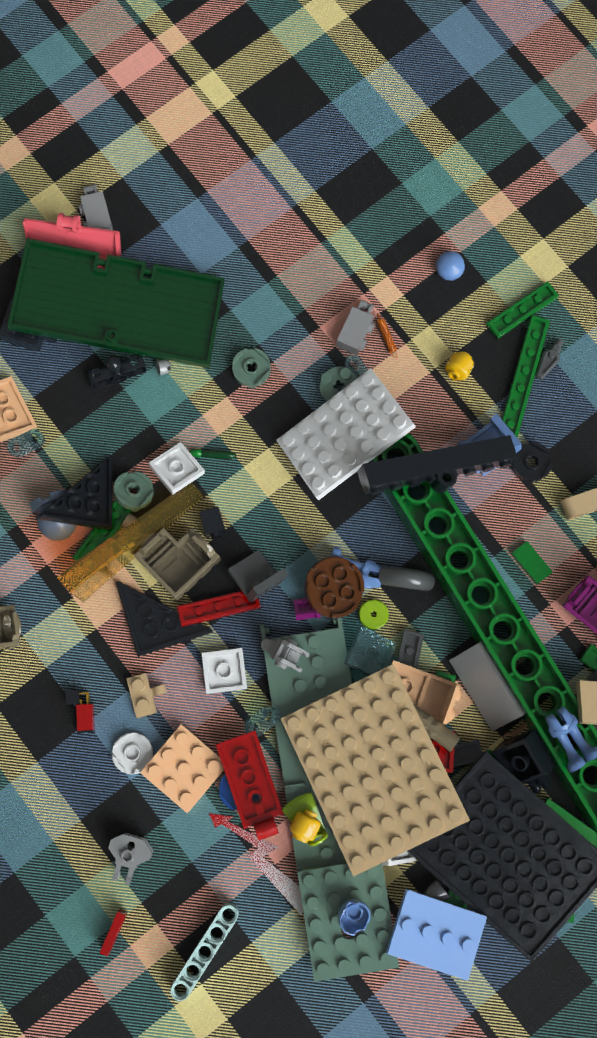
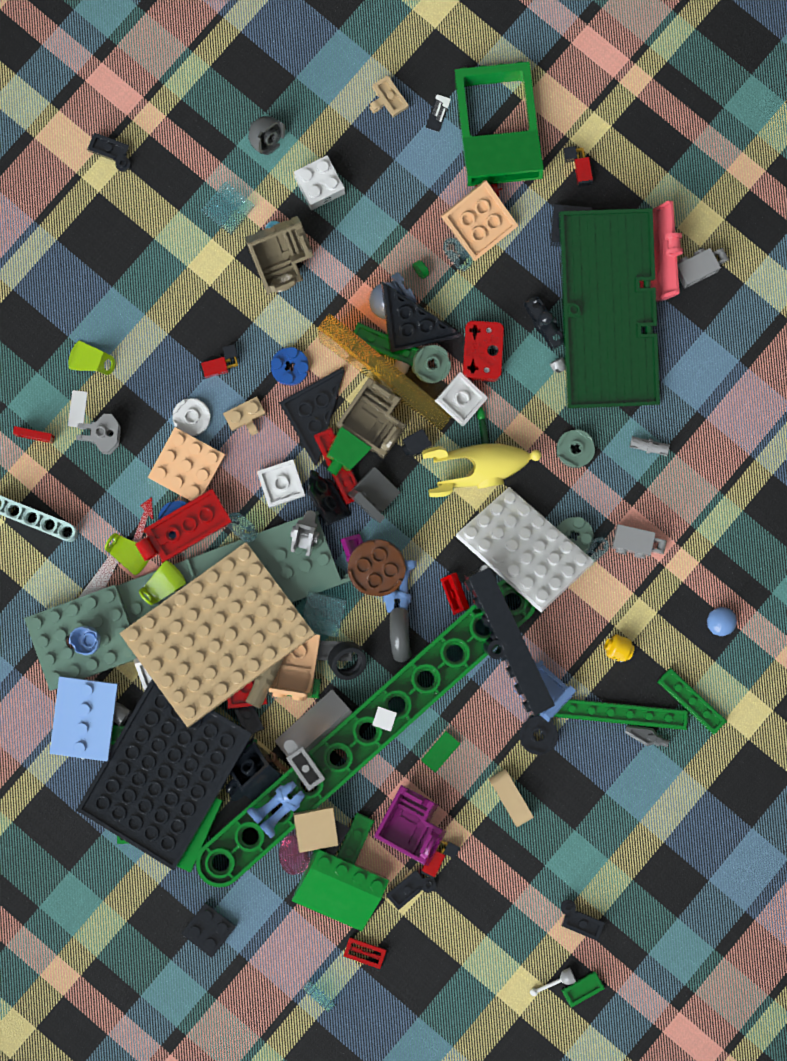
camera: 80 degrees right, 5 degrees up
(32, 482) = (421, 269): none -> green tile
(43, 854) = (88, 358): none -> lime piece
(95, 877) = (77, 408): none -> white sticker
(113, 641) = (289, 377): none -> blue plate
(128, 442) = (491, 336): none -> red axle
(205, 595) = (346, 451): none -> green torso
(251, 625) = (327, 499): none -> black tile
(252, 454) = (490, 465): none -> light yellow piece
(263, 297) = (649, 446): none -> light grey pin
(264, 852) = (126, 553): none -> lime piece
(305, 826) = (155, 582): yellow head -> none
(374, 515) = (454, 593): none -> red tile
(381, 614) = (353, 611): lime piece -> none
(386, 335) = (636, 572): orange piece -> none
(413, 642) = (353, 671): none -> black tyre
(496, 608) = (384, 718): none -> white tile
(533, 701) = (303, 765): none -> light grey brick

